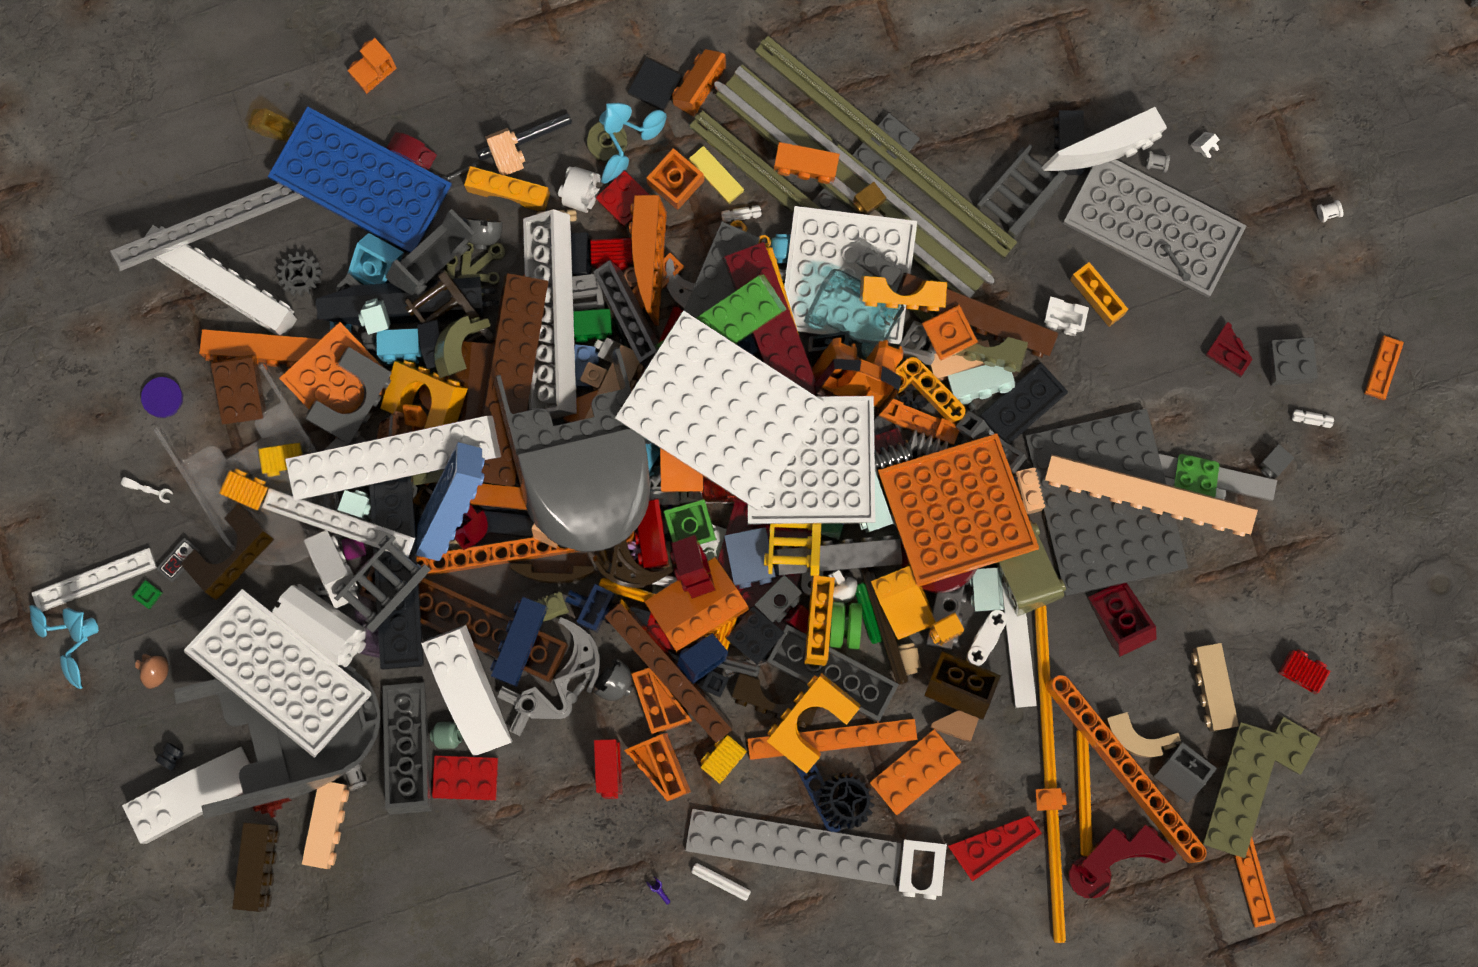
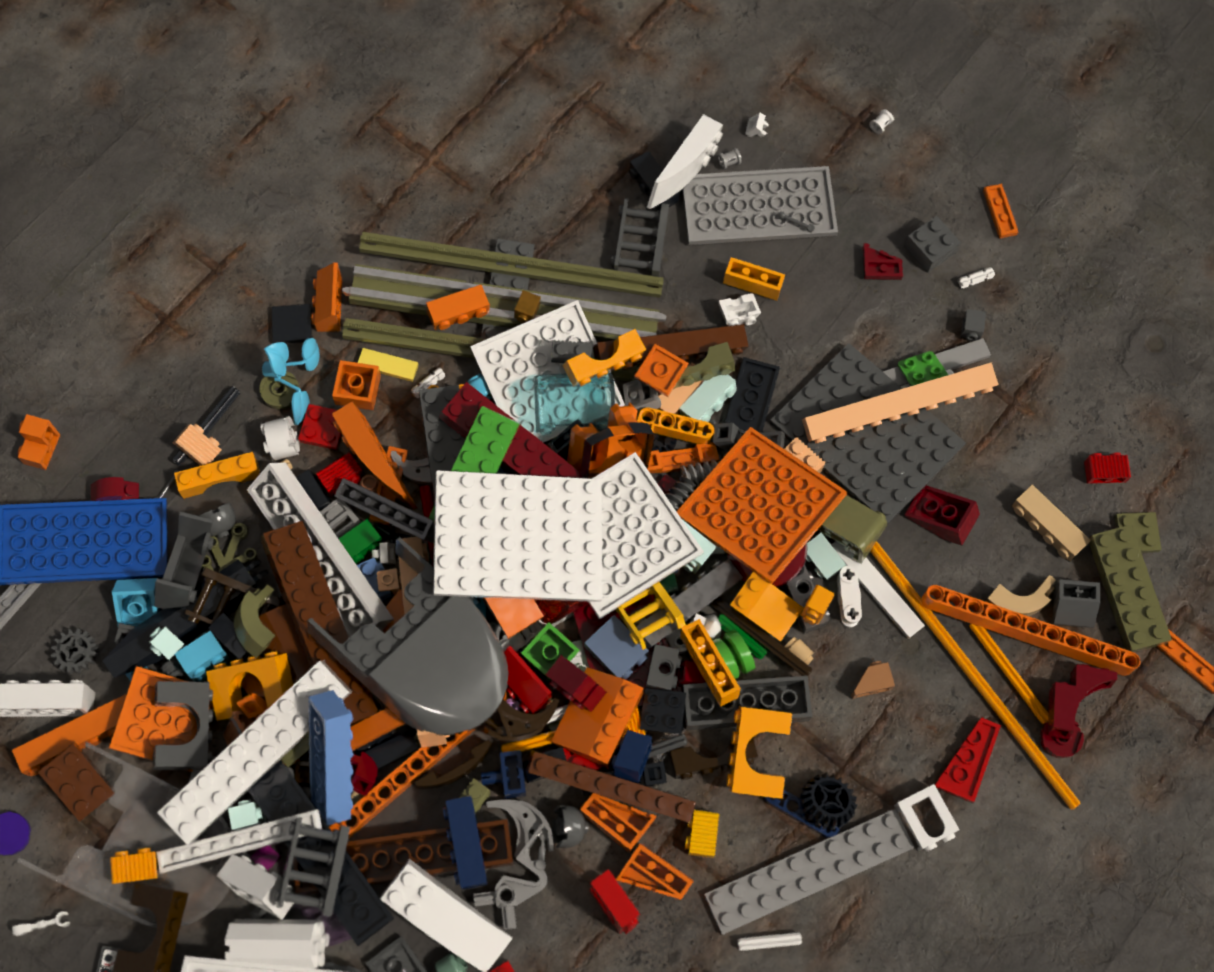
camera: 40 degrees left, 10 degrees down
(273, 458) = (148, 820): yellow brick -> none
(843, 738) = (786, 754): orange plate -> none
(915, 772) = (866, 742): orange plate -> none
(962, 685) = (858, 644): dark brown brick -> none
(1050, 799) = (988, 693): orange bracket -> none

